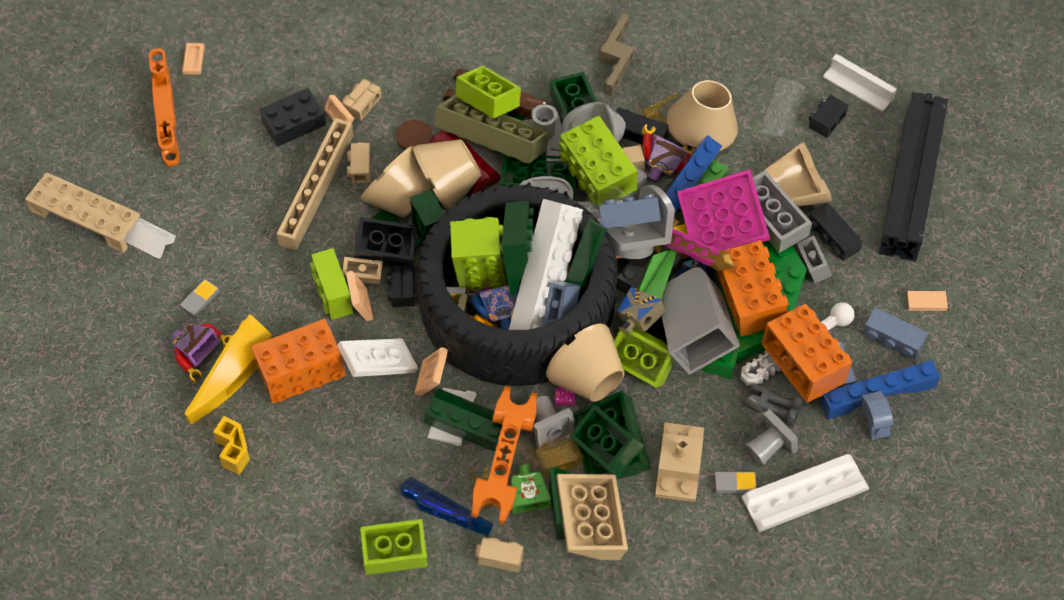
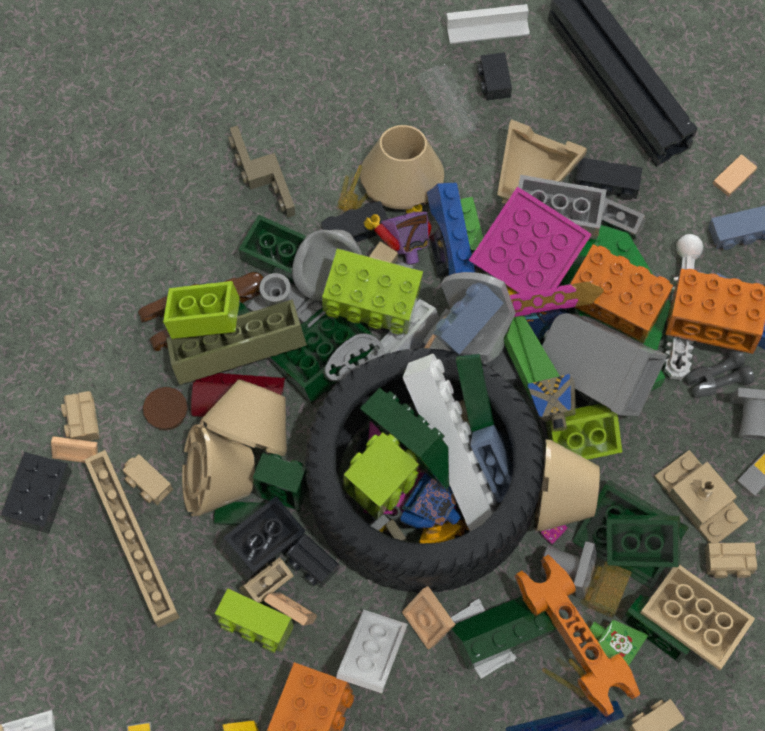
camera: 45 degrees left, 10 degrees up
(656, 510) = (731, 559): none -> tan brick

